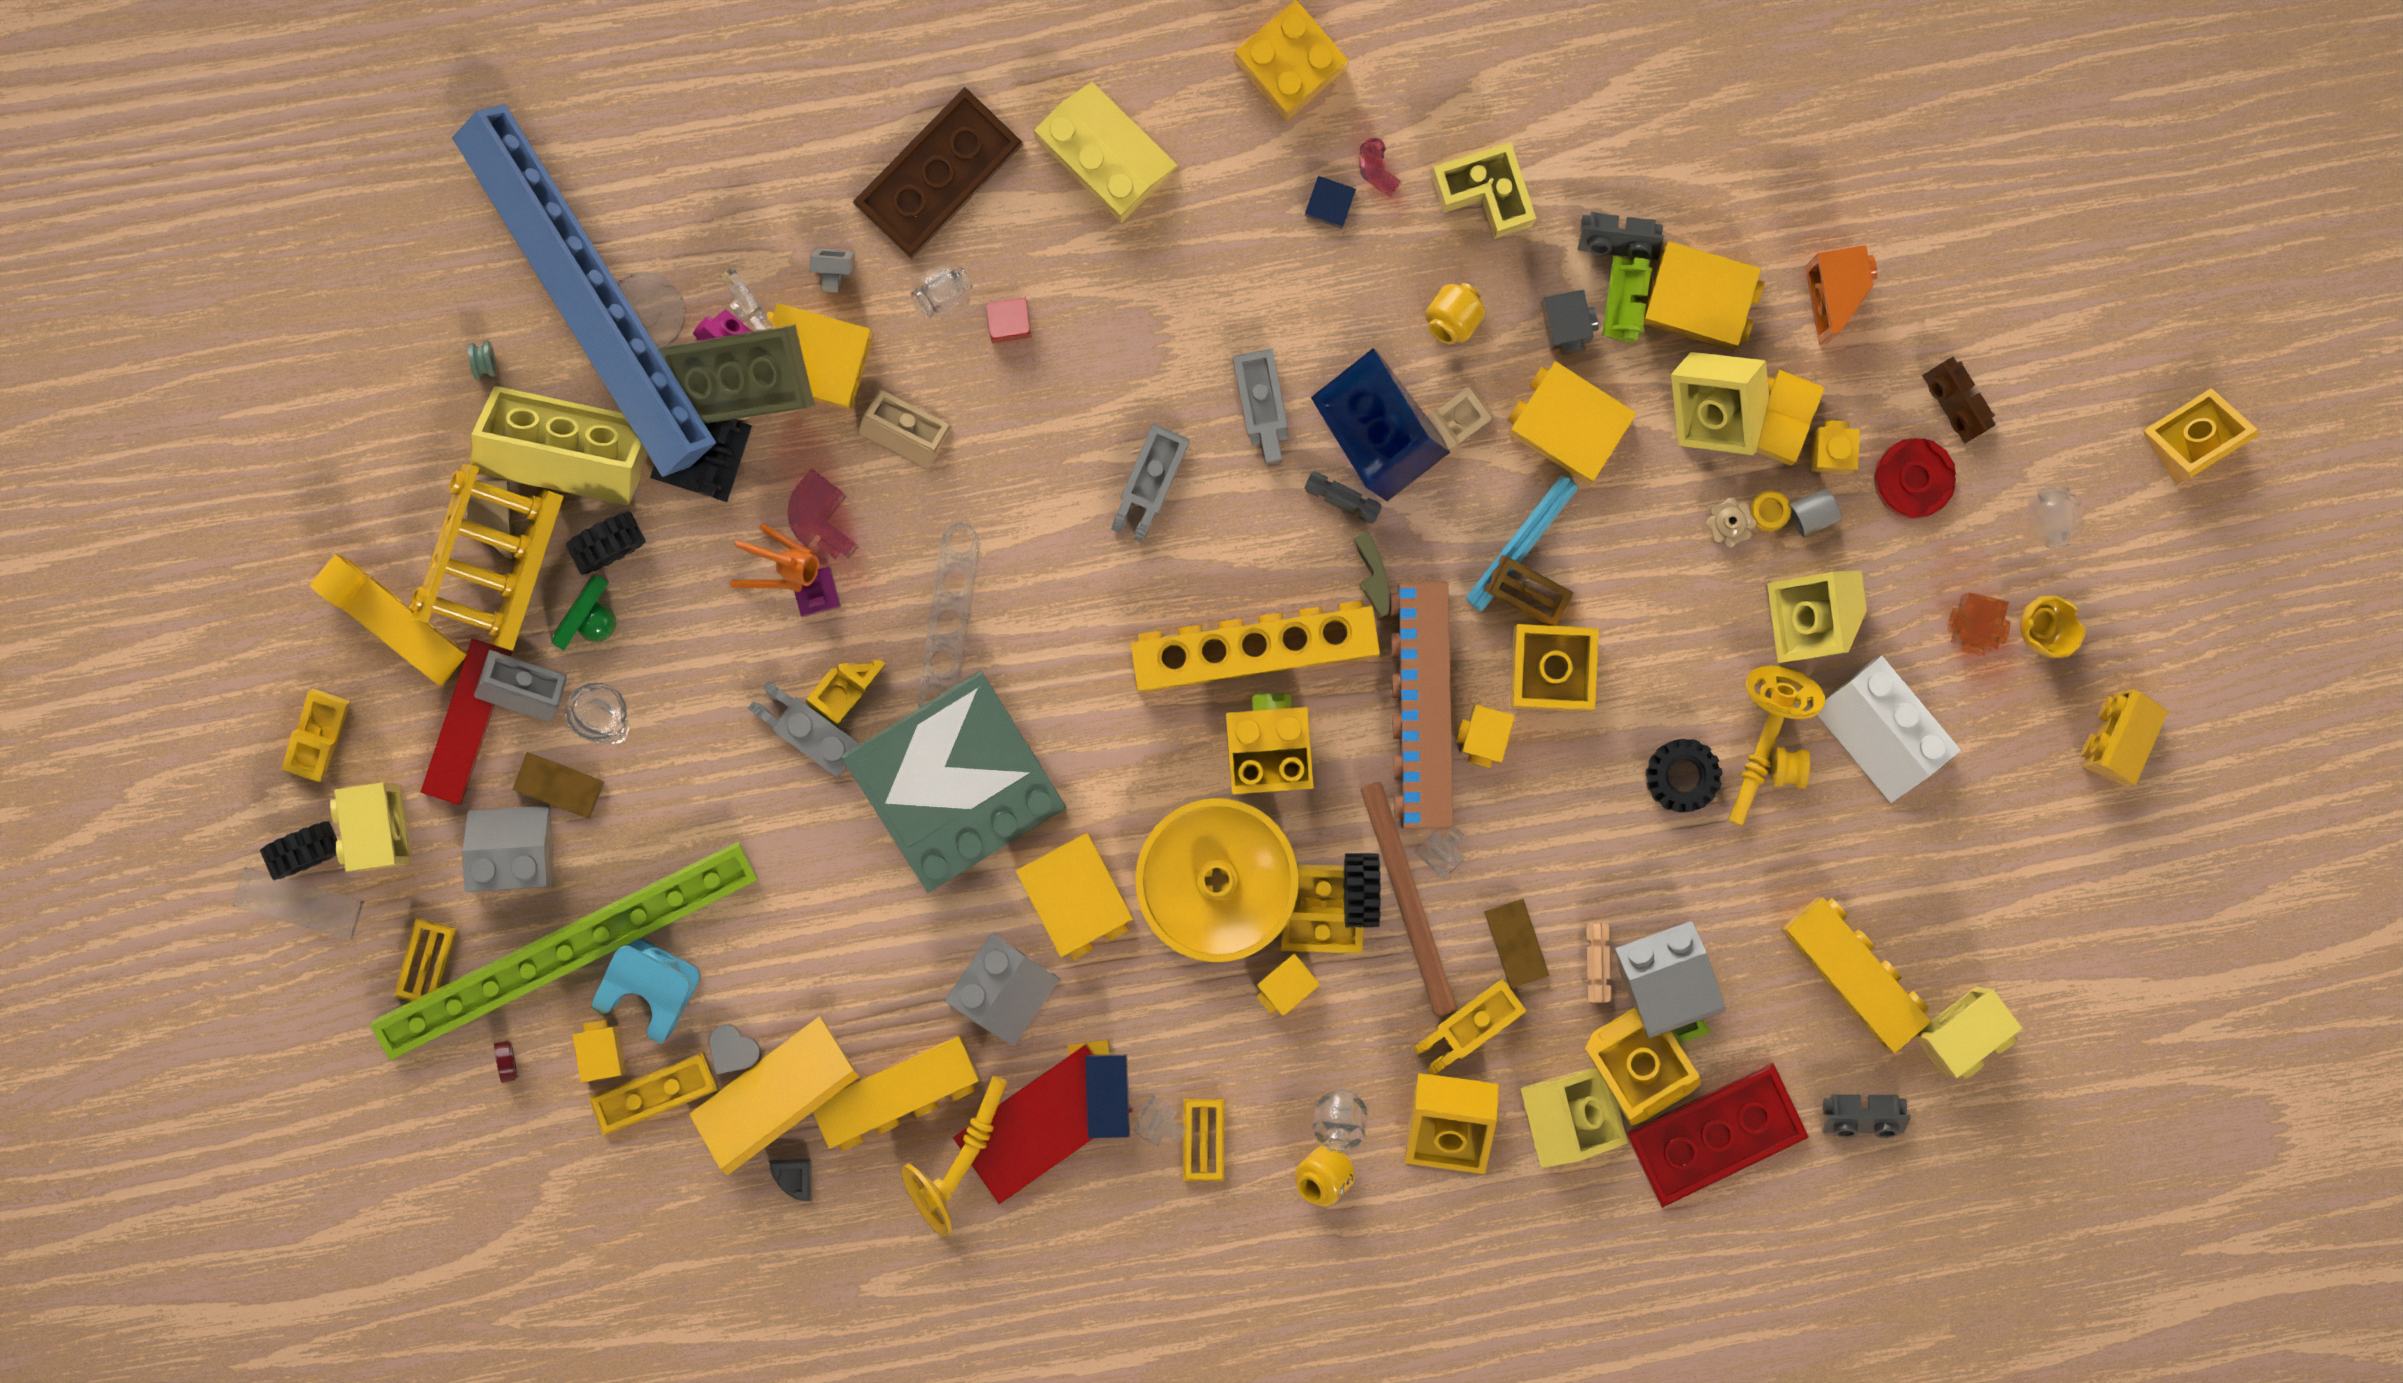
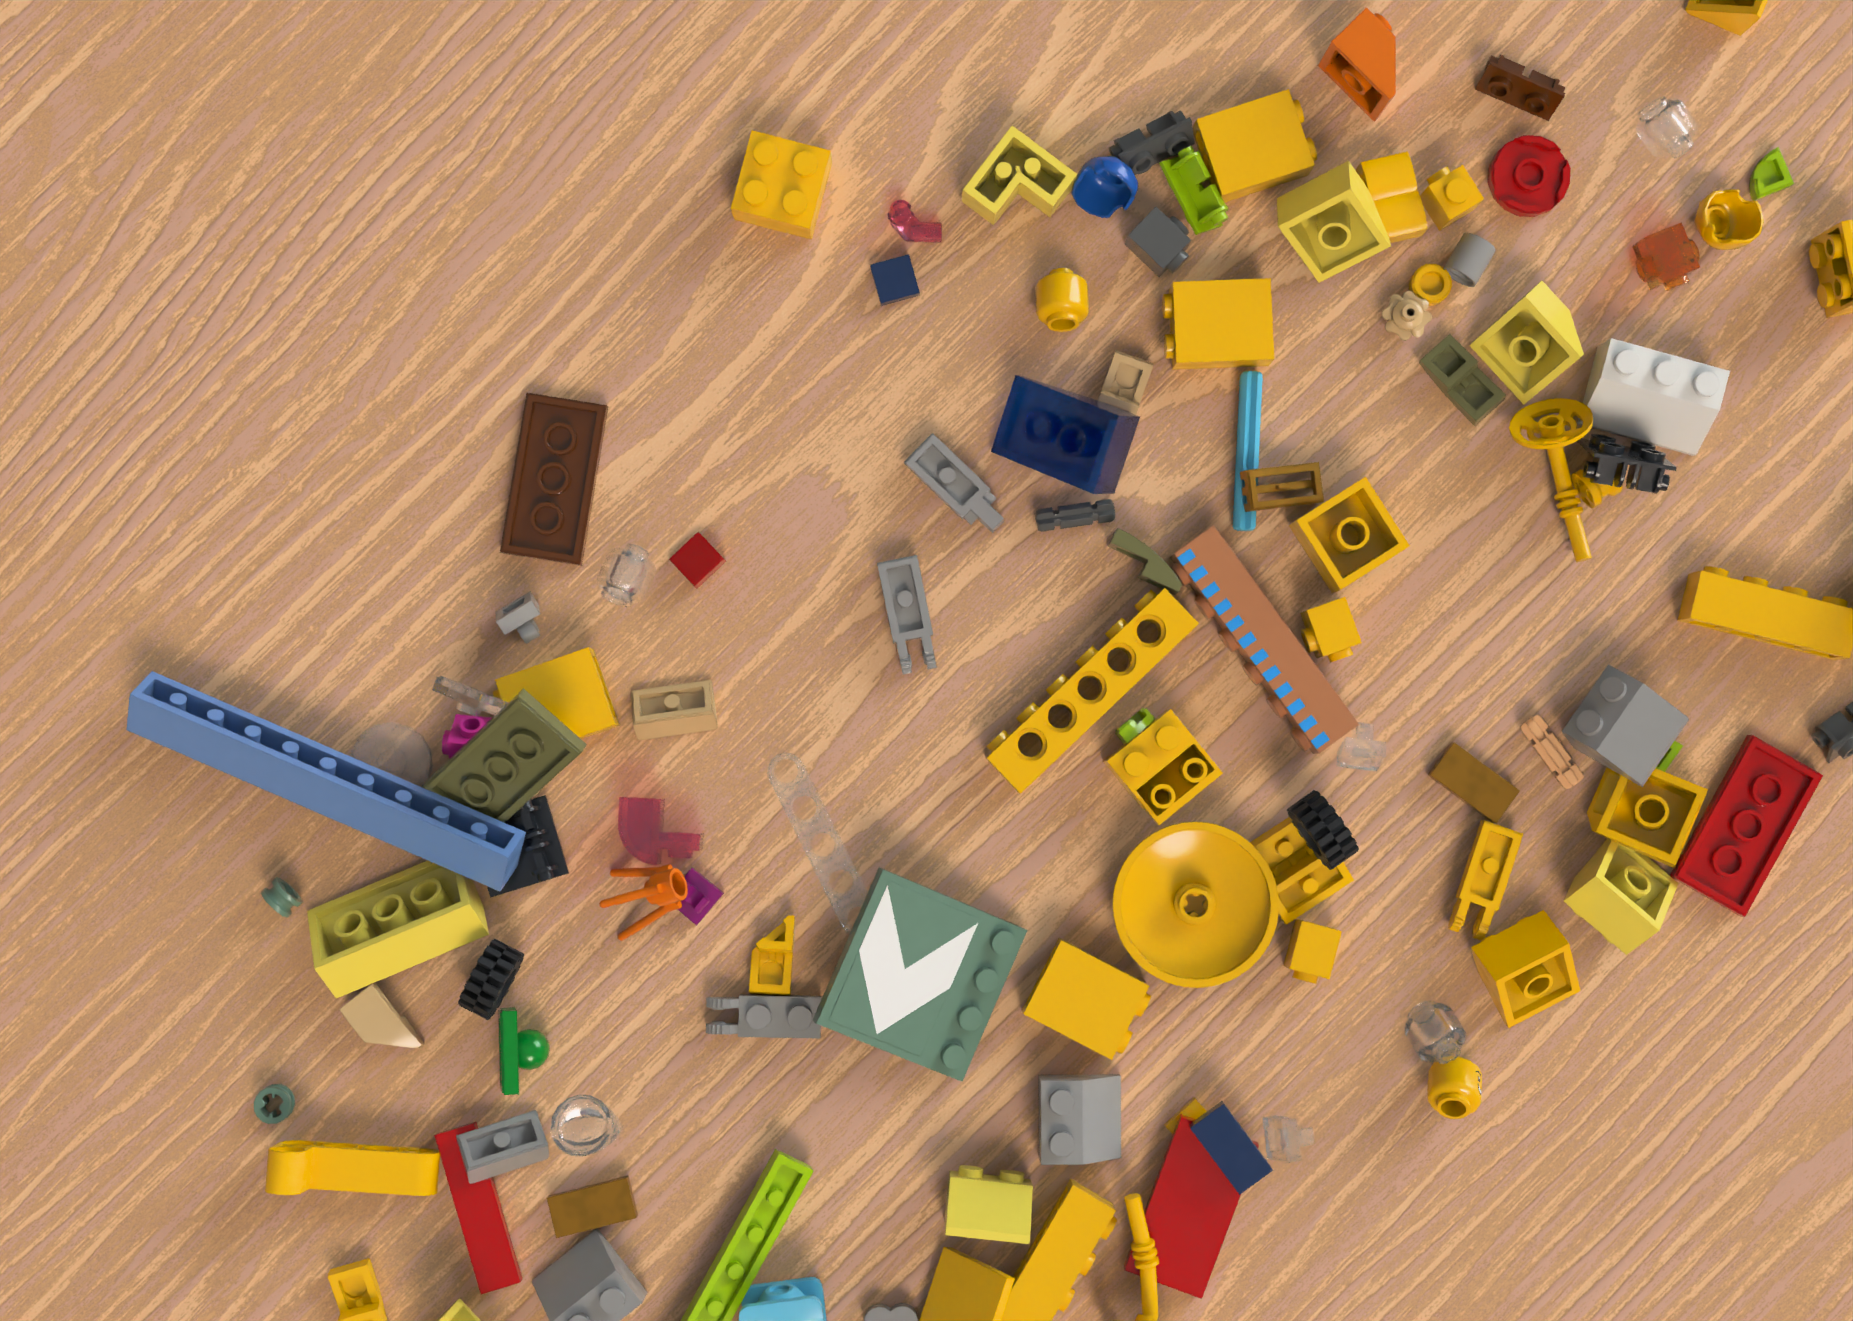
camera: 40 degrees left, 0 degrees up
(352, 514) = (262, 1100): none -> sand green bush
(526, 548) = (440, 1068): yellow fence -> none
(879, 1004) = (989, 1205): none -> light yellow slope
(1104, 150) = (679, 365): light yellow slope -> none
(1203, 1175) = (1310, 1095): yellow tile -> none
(1408, 898) = (1360, 808): nougat axle -> none
(1555, 244) = (1104, 186): none -> blue hair
(1708, 770) = (1537, 542): black tyre -> none
(1740, 607) = (1461, 380): none -> olive slope
(1842, 770) = (1612, 460): none -> black hinge
(2116, 616) = (1769, 176): none -> lime tile

